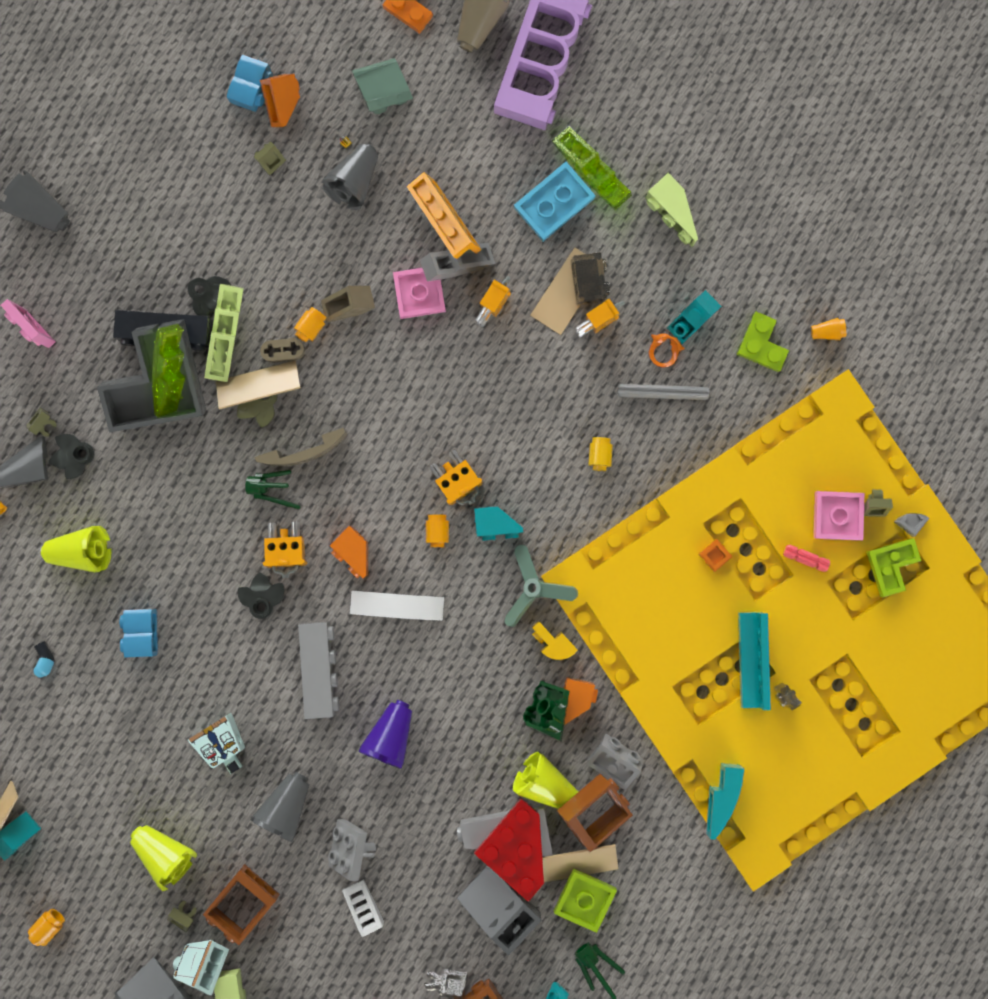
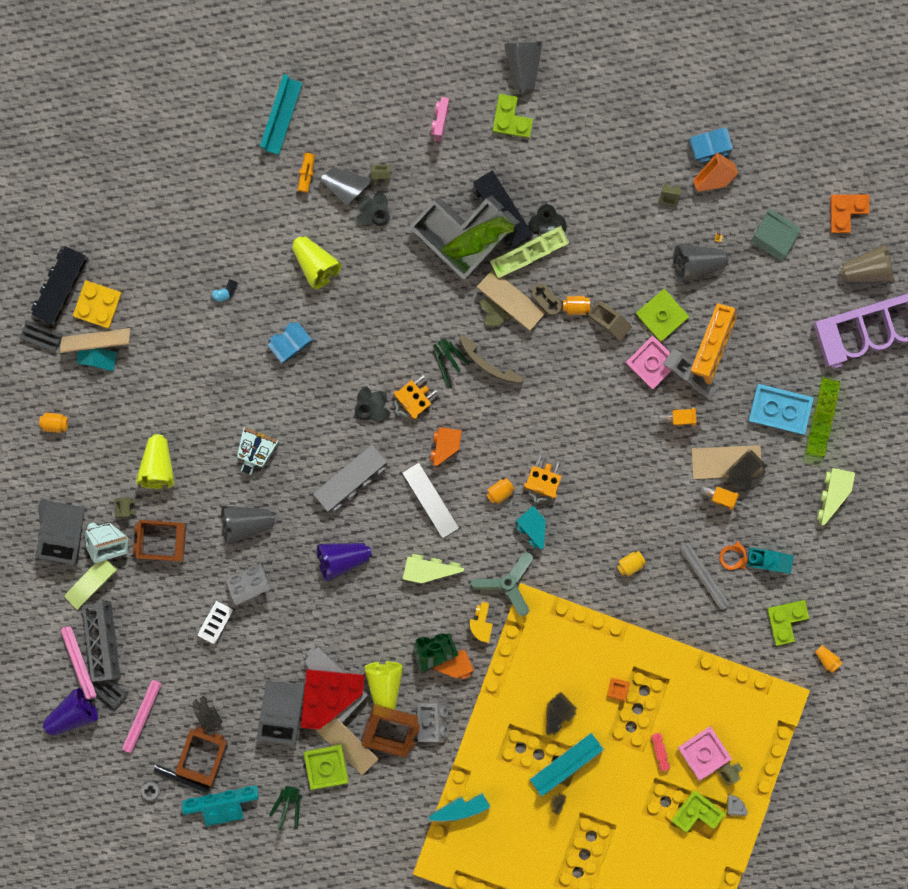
camera: 55 degrees right, 0 degrees up
(83, 263) = (506, 121): none -> lime plate
(380, 250) = (662, 315): none -> lime plate
(461, 662) = (424, 571): none -> yellowish green slope
(695, 630) = (558, 711): none -> clear smoke slope

